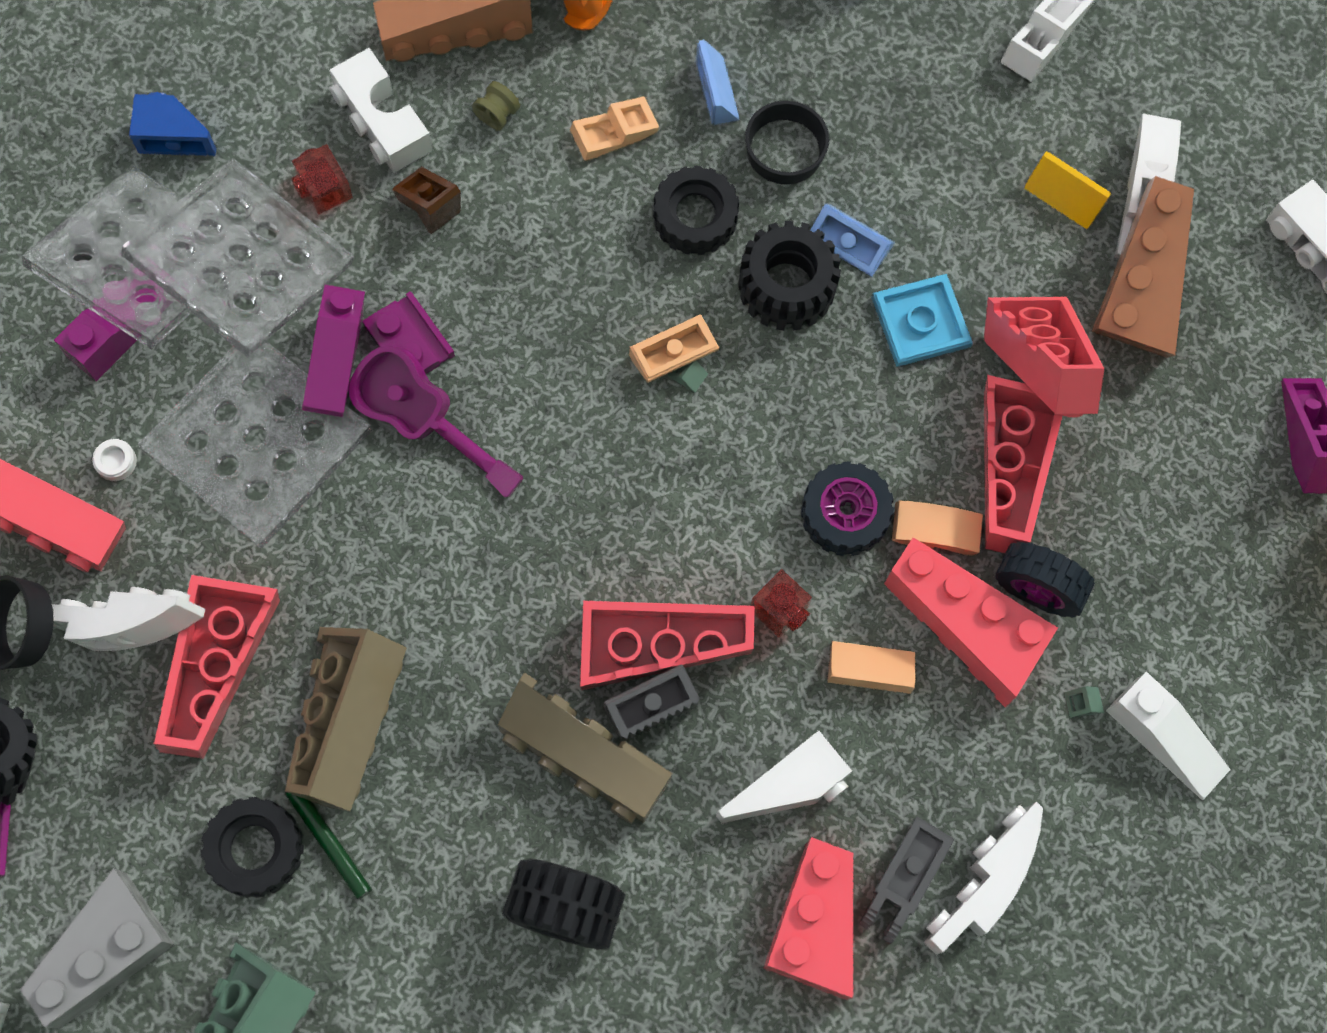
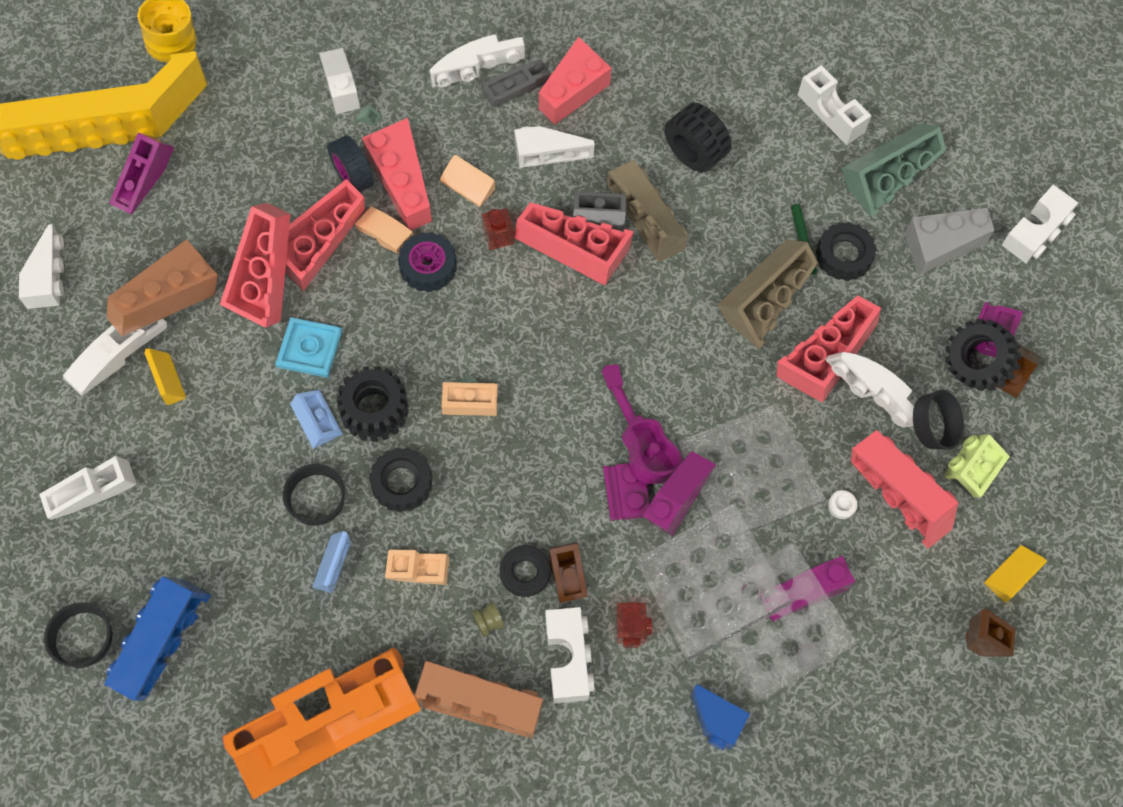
camera: 150 degrees left, 5 degrees down
(490, 162) = (520, 554): none -> black tyre

